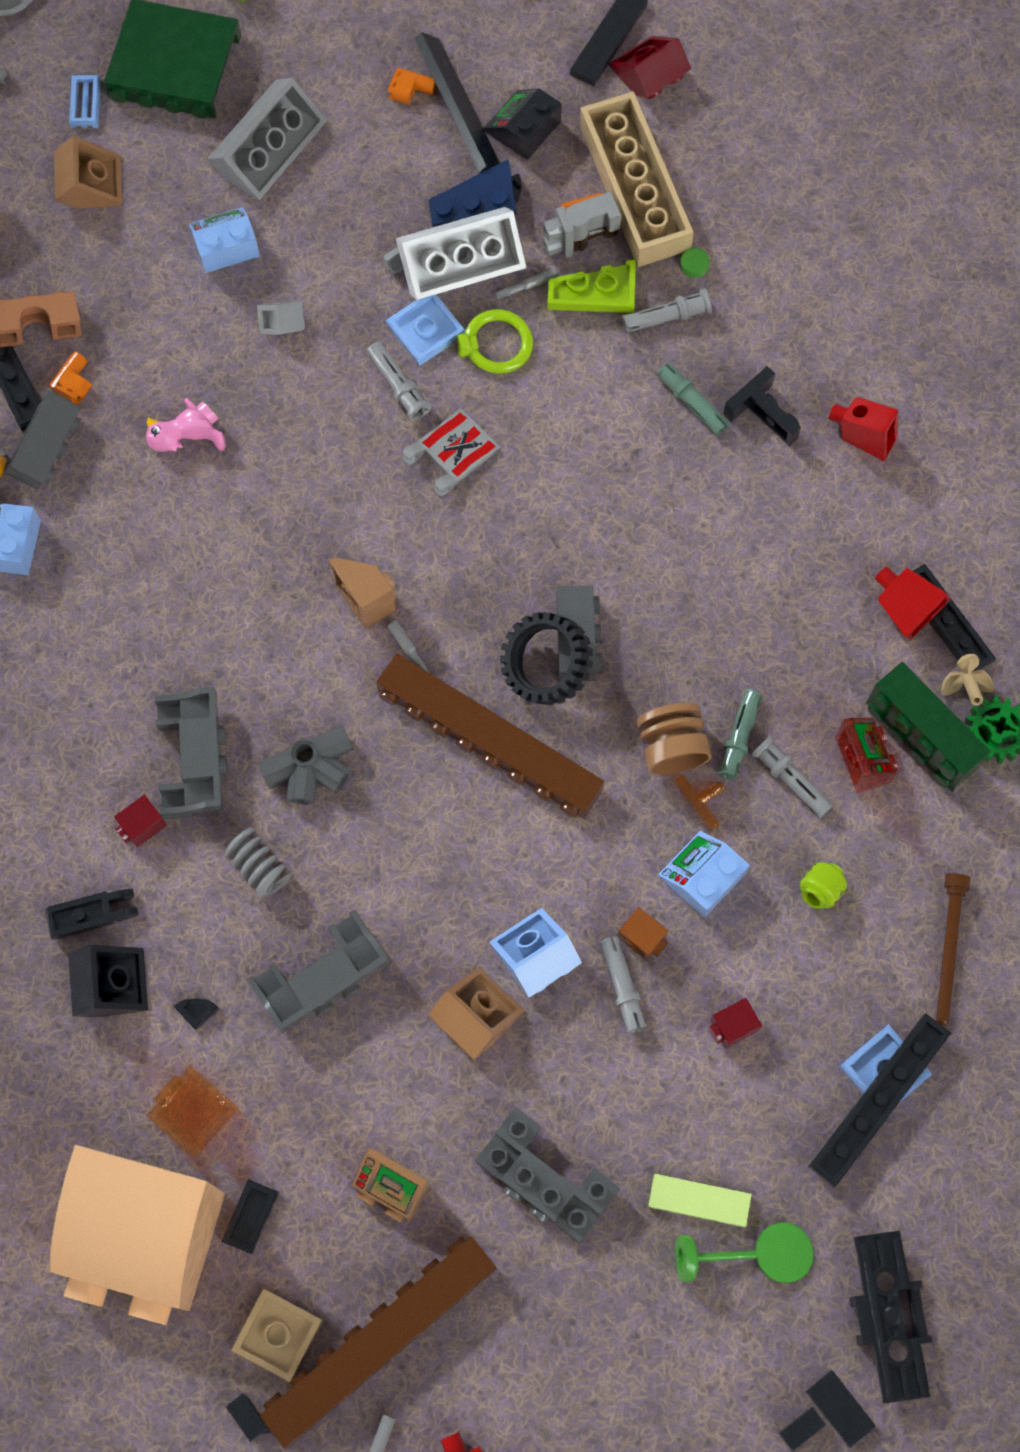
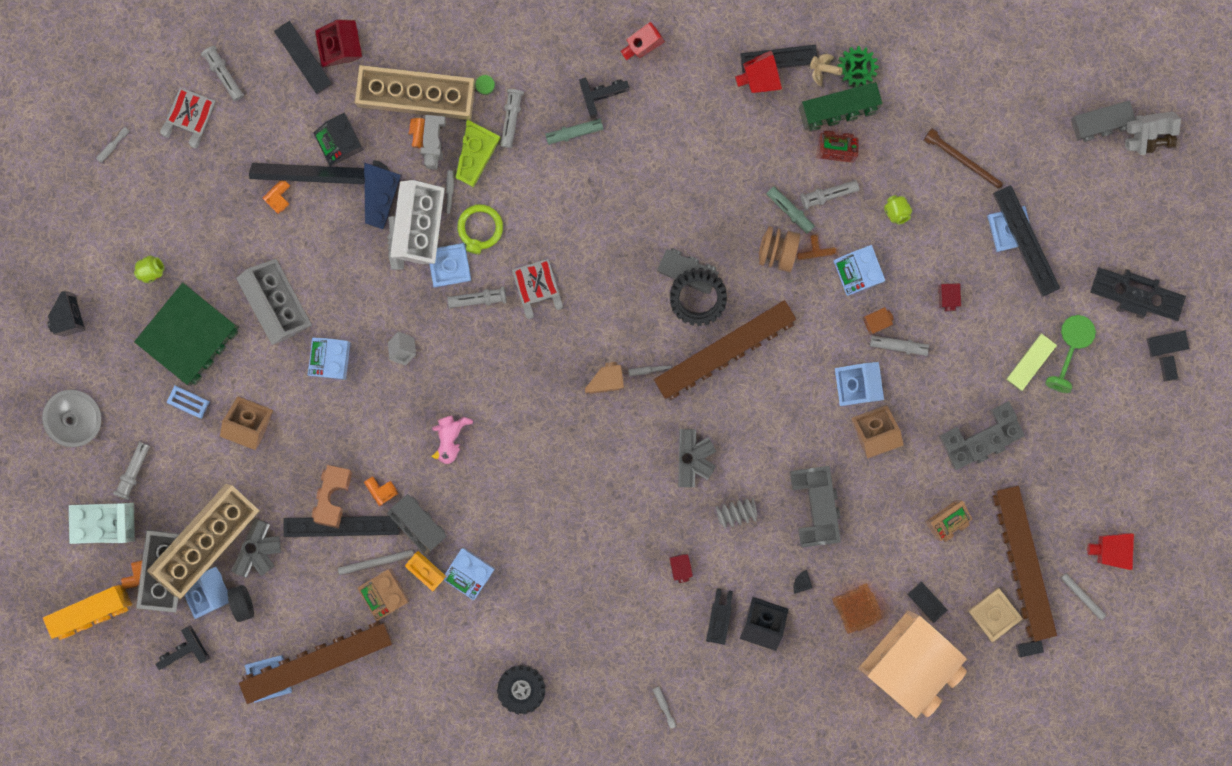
camera: 65 degrees left, 15 degrees up
(200, 751) = (658, 516): dark grey bracket -> none

